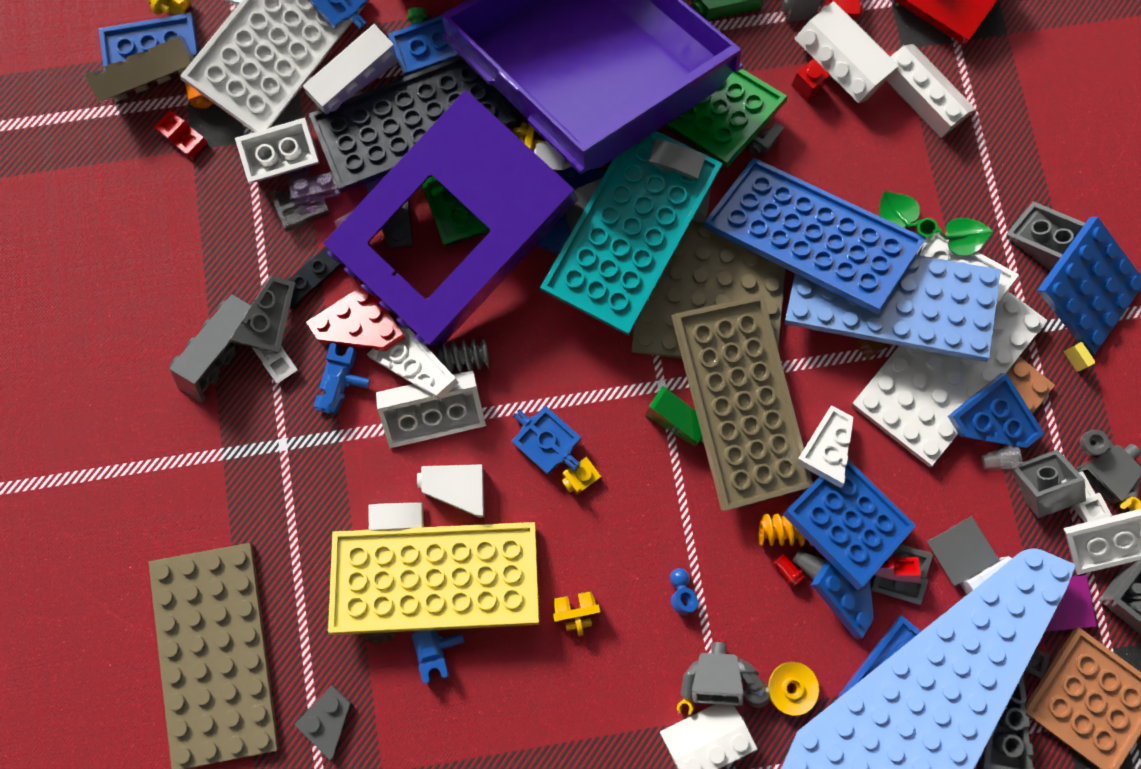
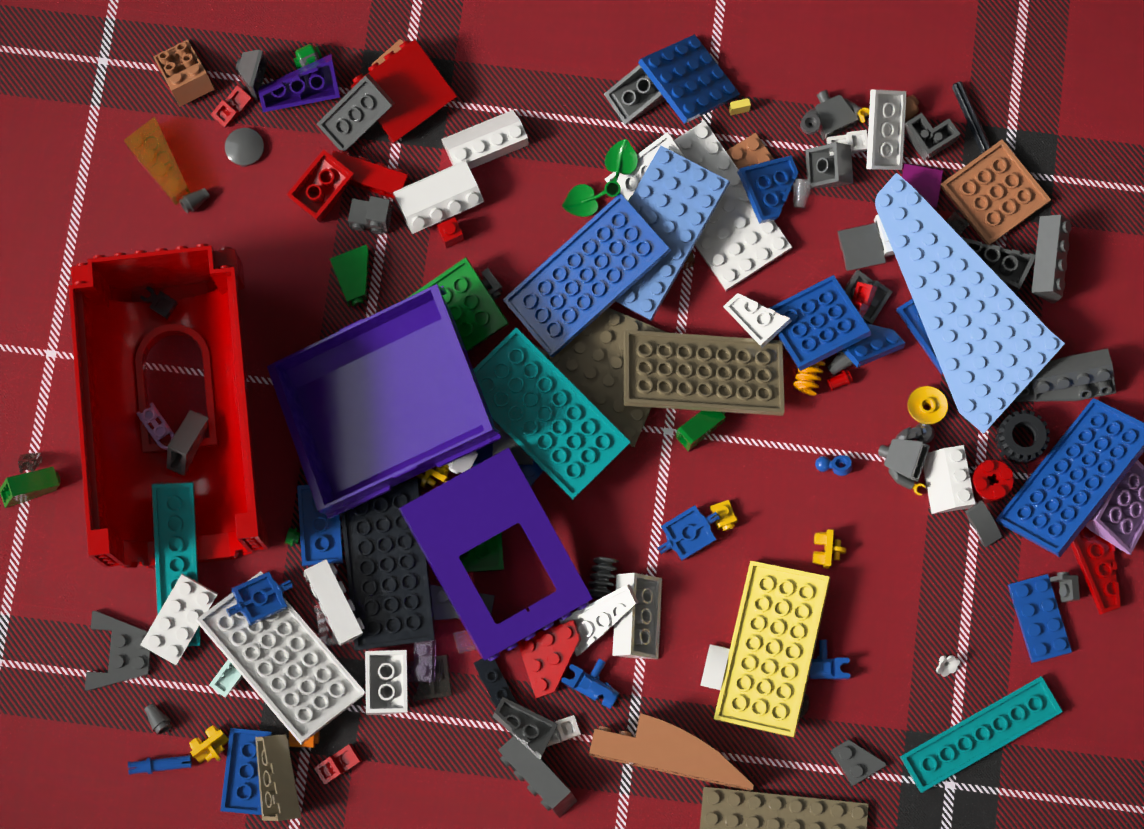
camera: 70 degrees left, 0 degrees up
(277, 488) = (667, 750): none -> nougat slope
(455, 485) = (705, 613): white slope -> none
(675, 157) = (503, 361): dark grey slope -> none

